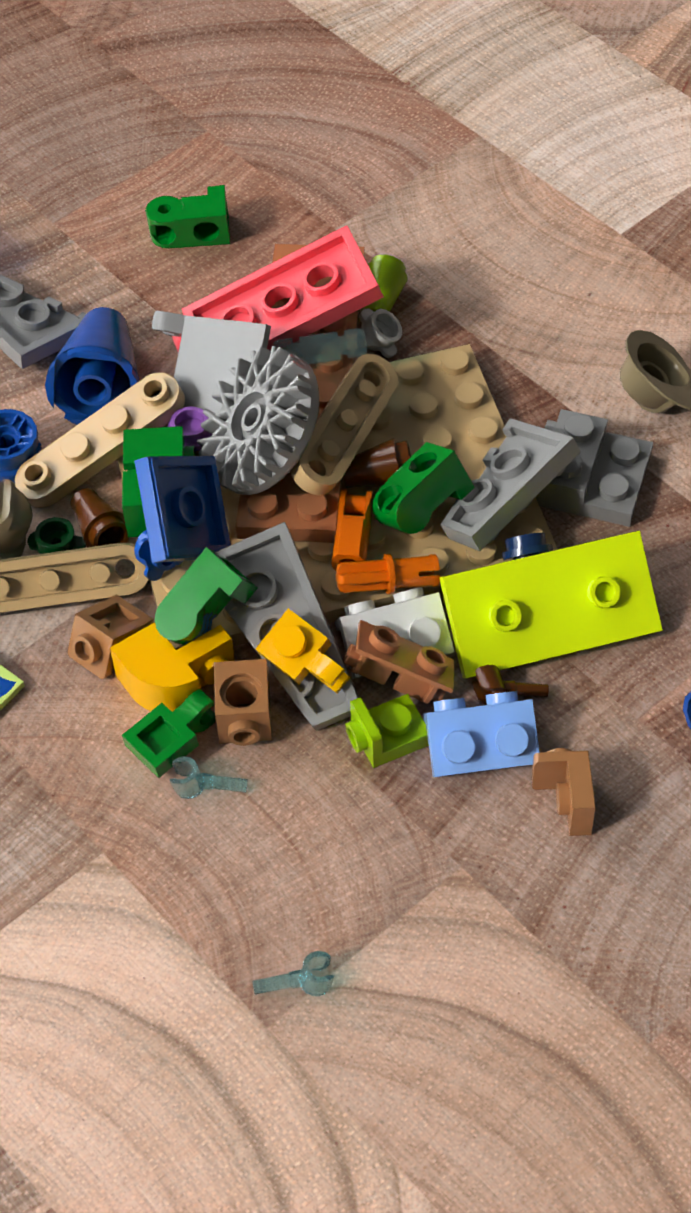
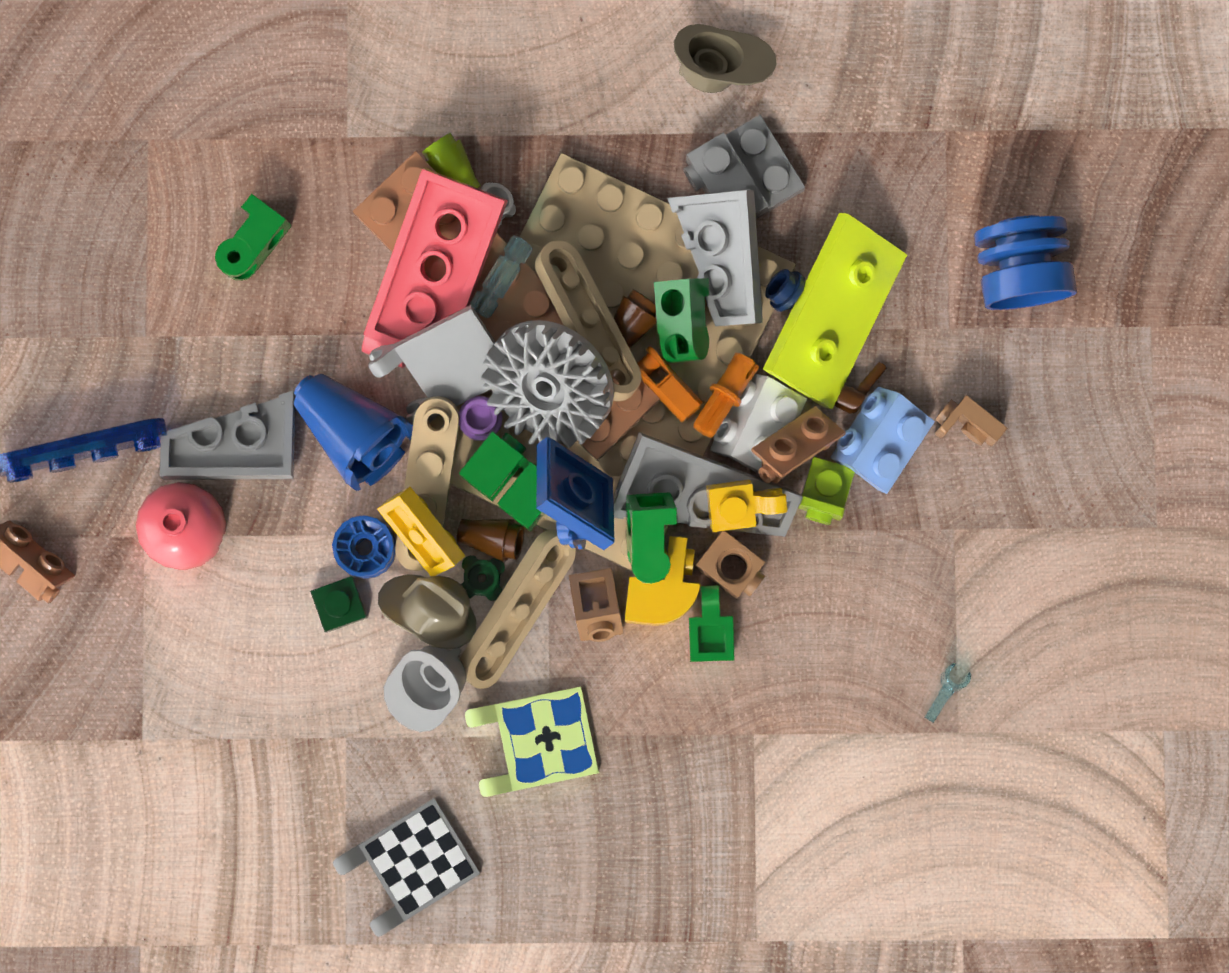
camera: 45 degrees left, 30 degrees up
(52, 436) = (421, 531): none -> yellow plate
(197, 781) = (764, 630): clear light blue hand -> none

